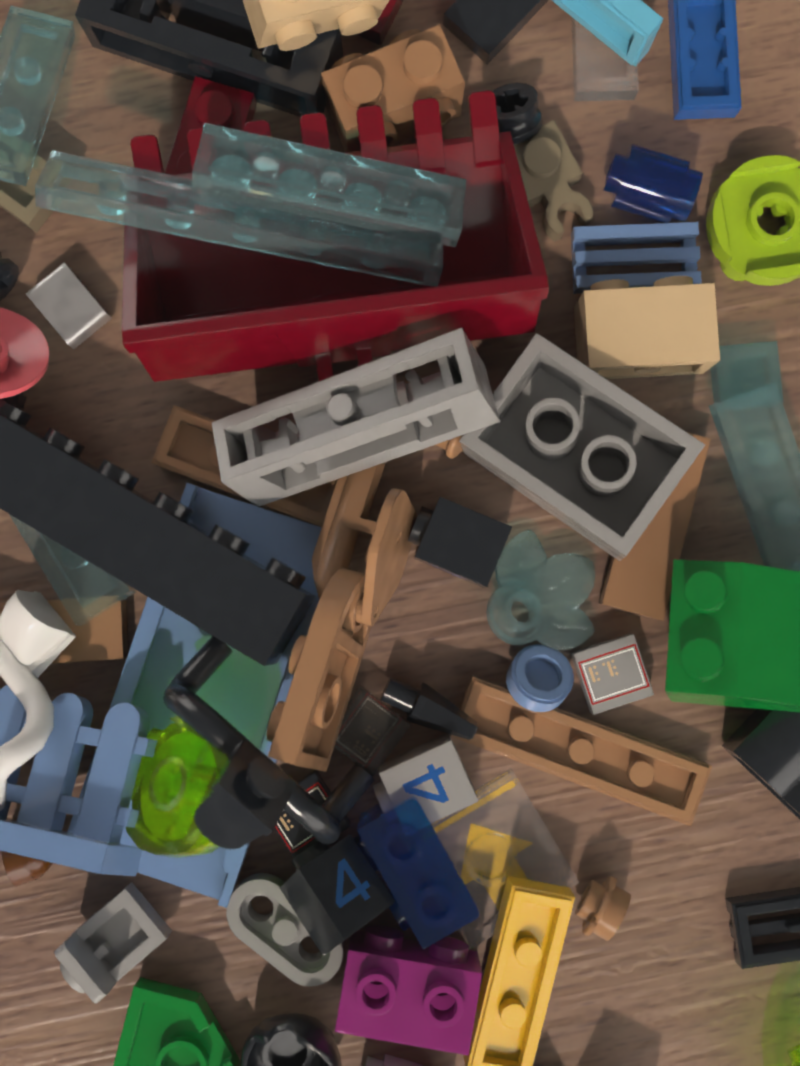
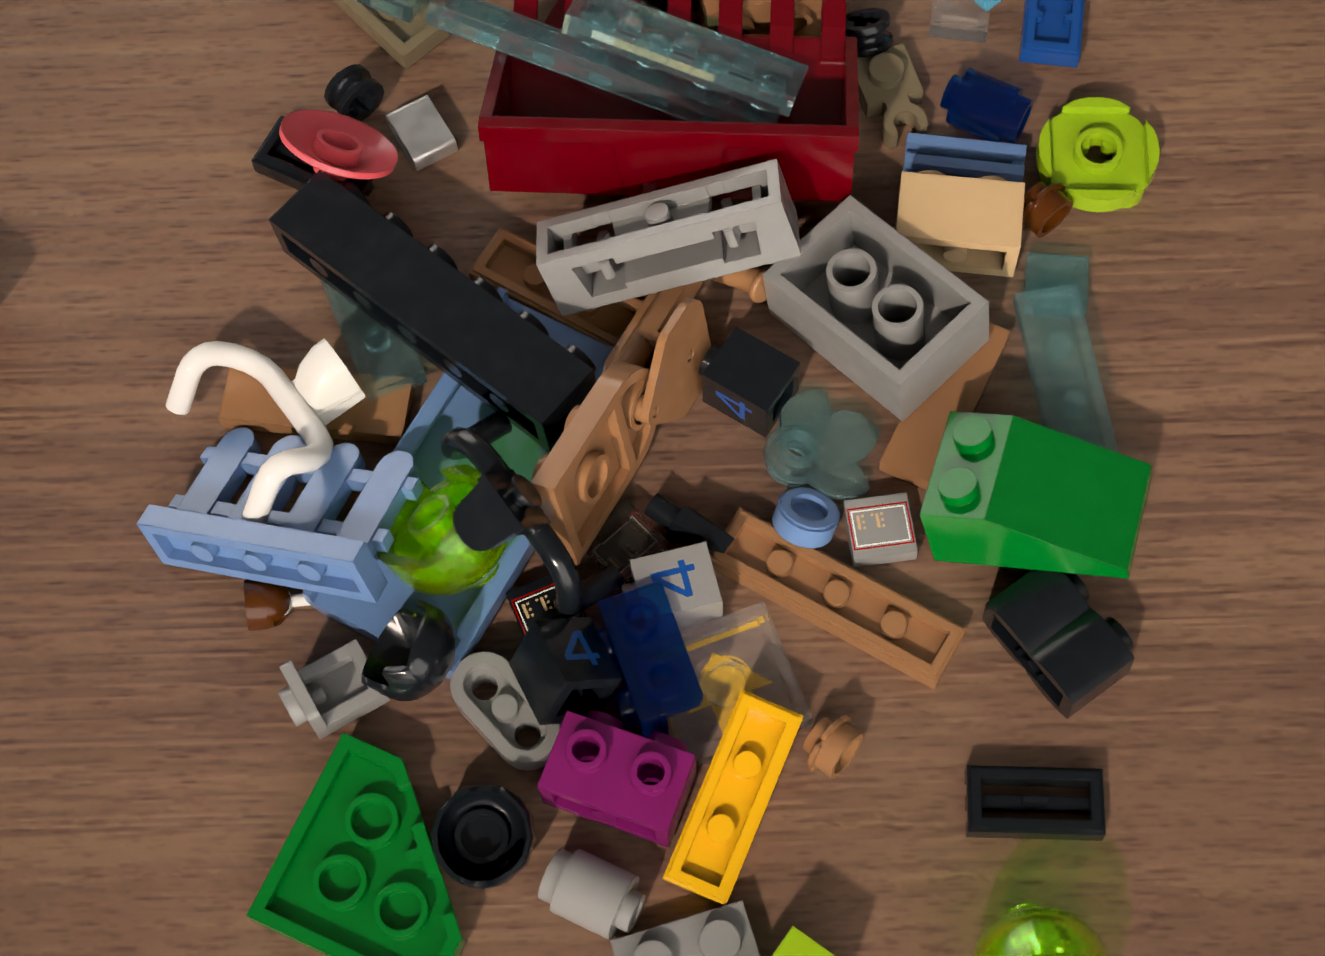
camera: 10 degrees right, 20 degrees down
(181, 912) = (411, 654): none -> black hair
(730, 291) = (1045, 208): none -> reddish brown plate

